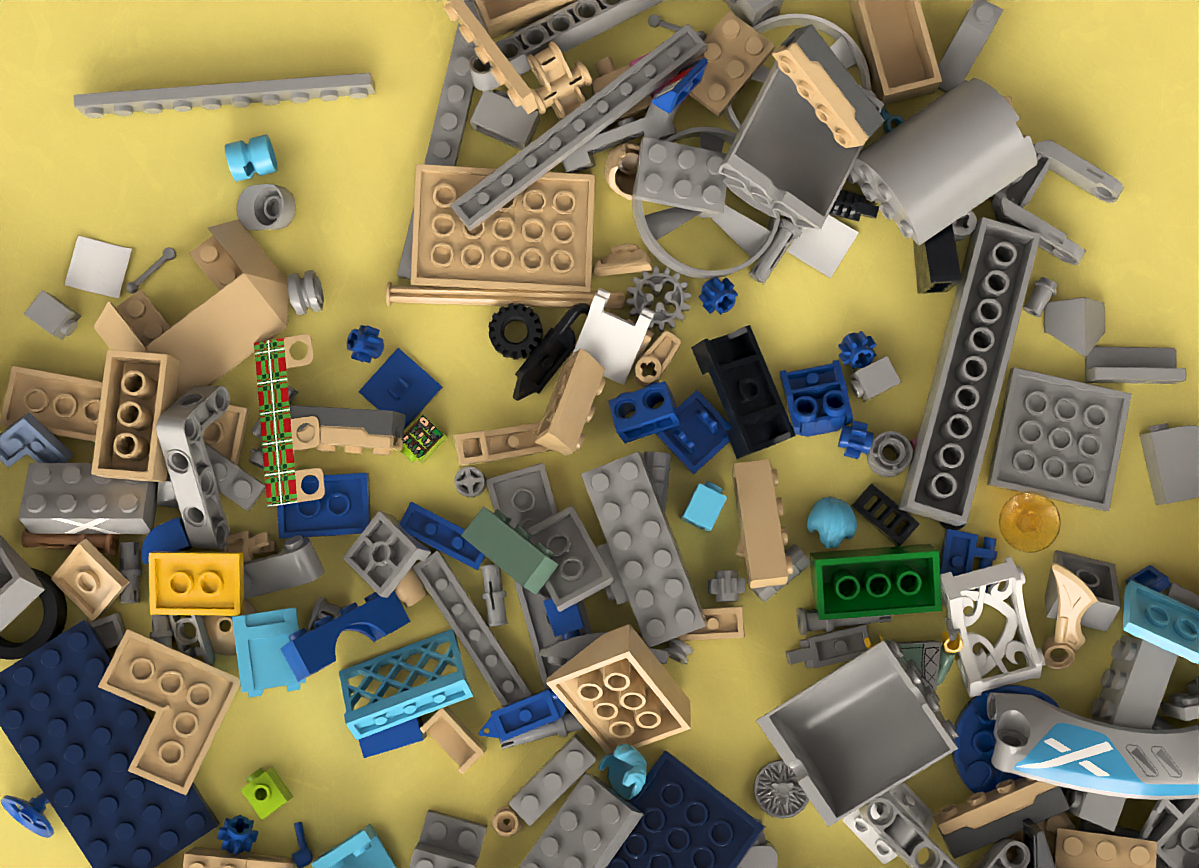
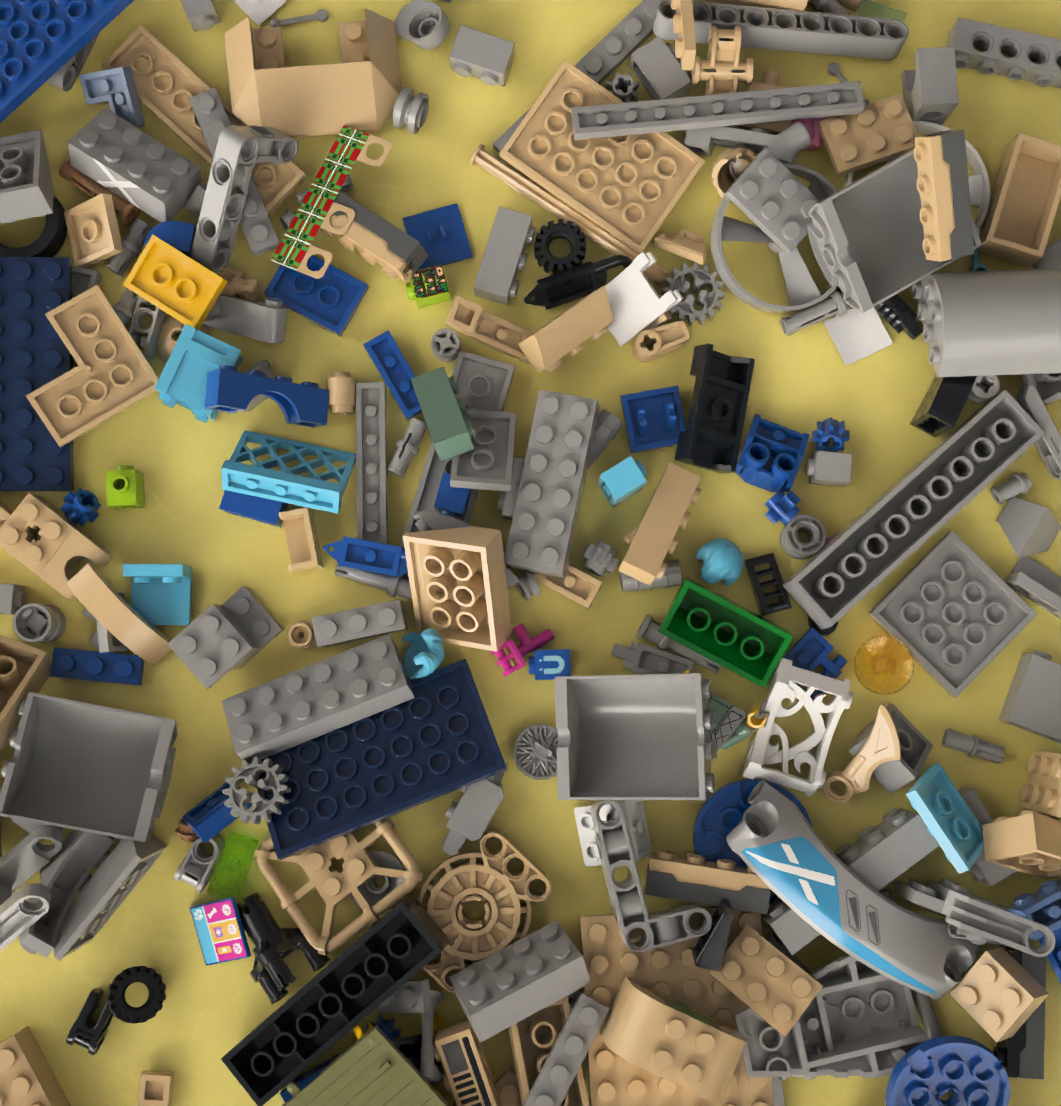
camera: 30 degrees right, 0 degrees up
(133, 397) = (219, 97): tan brick -> none
(304, 855) = (124, 557): blue hand -> none
(337, 203) = (482, 56): none -> light grey brick
(365, 343) = (432, 181): blue gear -> none
(384, 553) = (340, 356): light grey piece -> none
(471, 370) = (504, 256): none -> light grey brick
(482, 149) = (623, 88): none -> light grey gear
(645, 419) = (623, 375): blue brick -> none
(680, 86) = (822, 127): blue slope -> none
(711, 704) = (516, 653): none -> dark pink arm
(718, 295) = (744, 320): blue gear -> none
(742, 707) = (550, 664): none -> blue brick
(1149, 543) = (973, 746): none -> light grey axle
(1151, 578) = (957, 775): blue tile -> none

